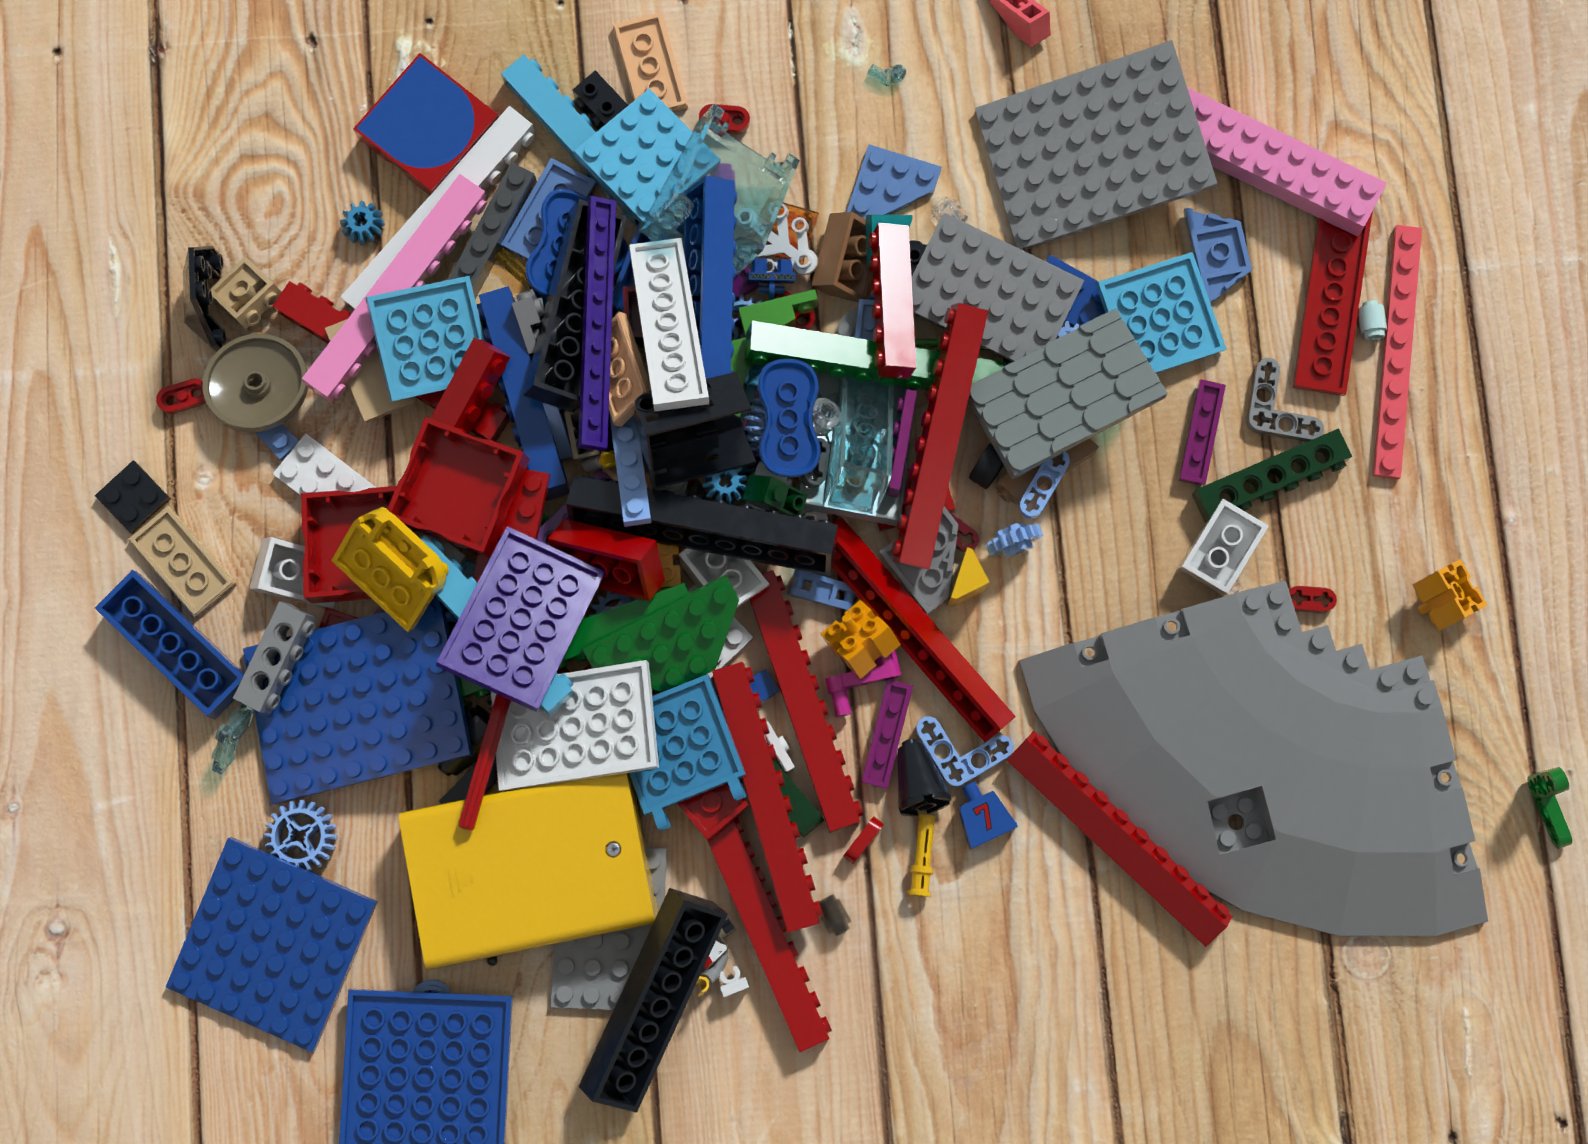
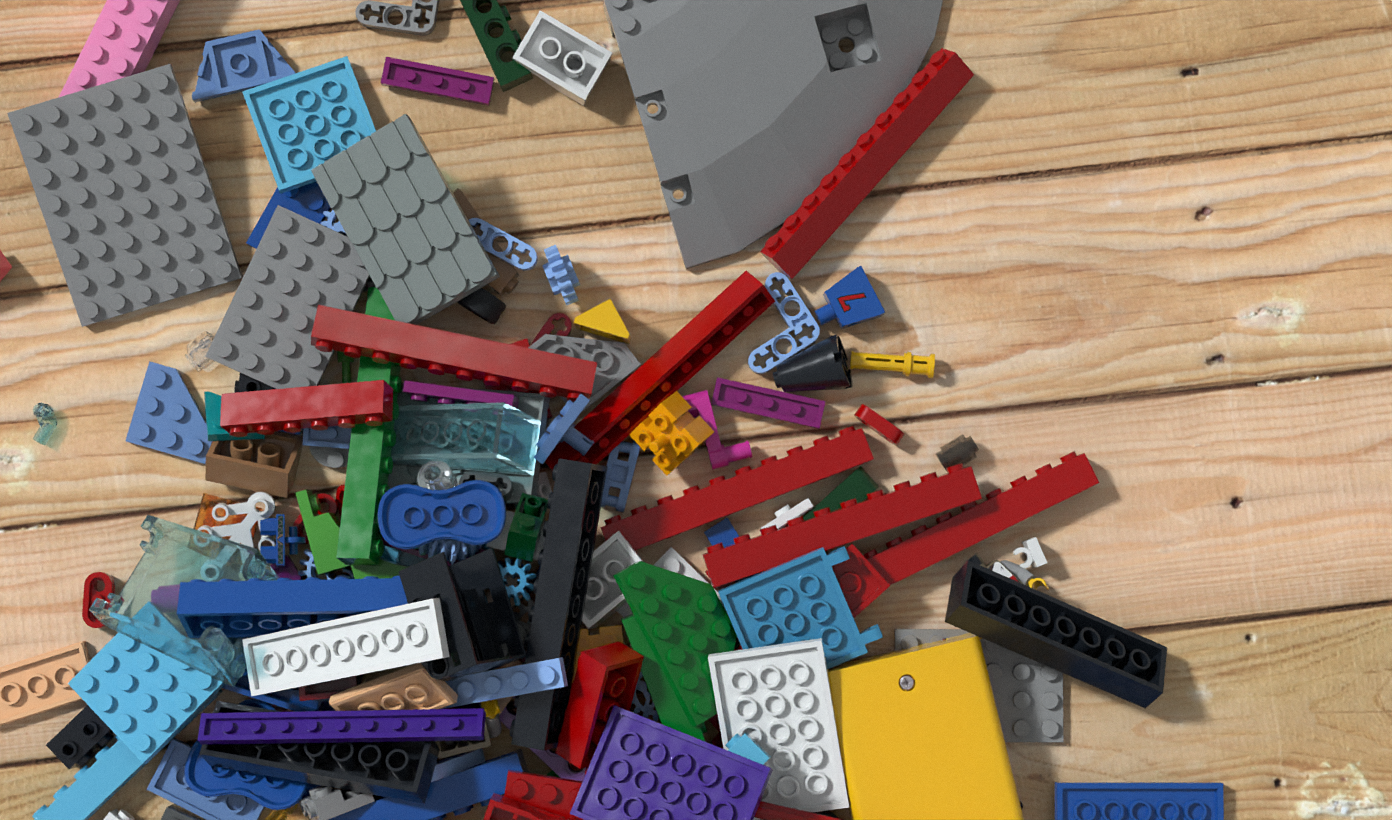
camera: 95 degrees left, 5 degrees up
(865, 534) = (563, 430): none -> medium blue plate

